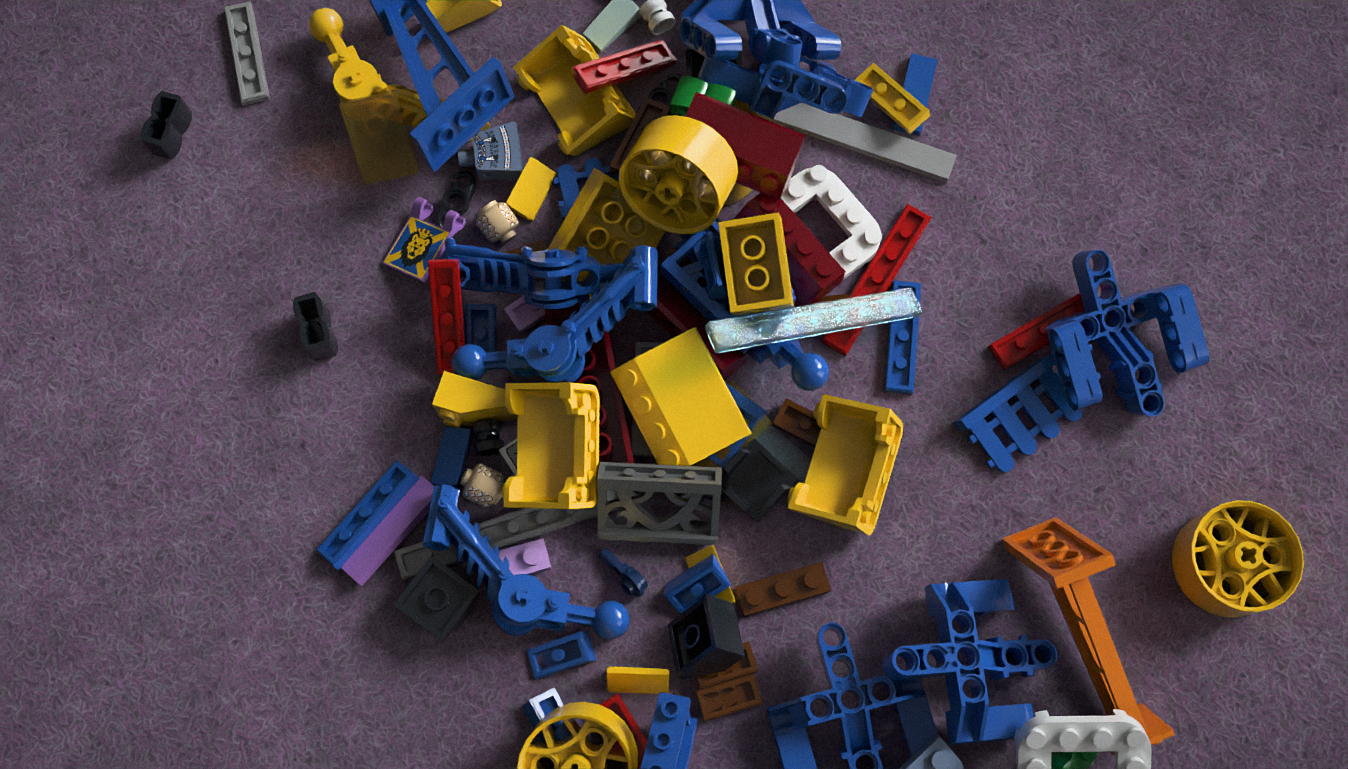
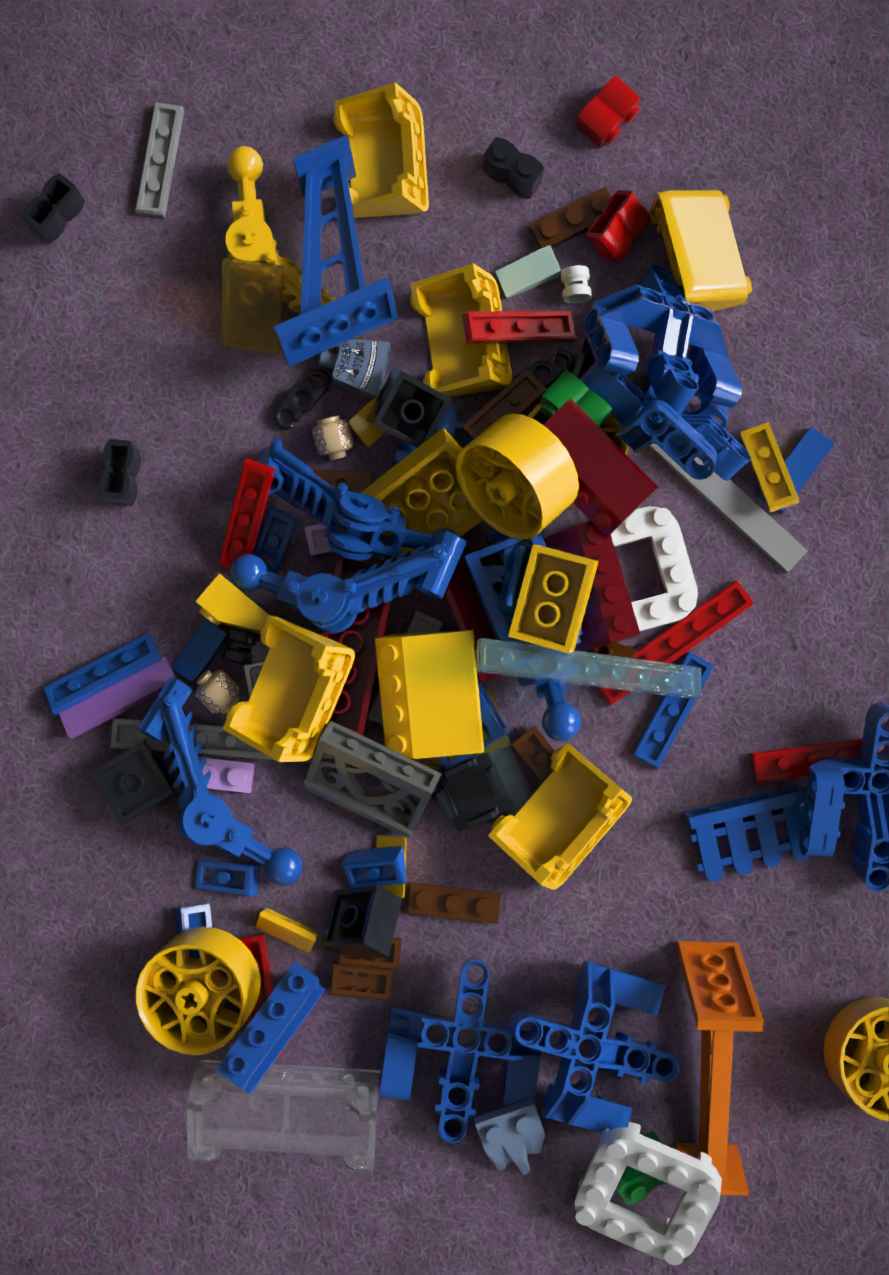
camera: 20 degrees right, 10 degrees up
(421, 241) = (251, 428): flag -> none
(555, 168) = (408, 408): none -> black slope
(632, 581) = (318, 839): dark blue plate -> none

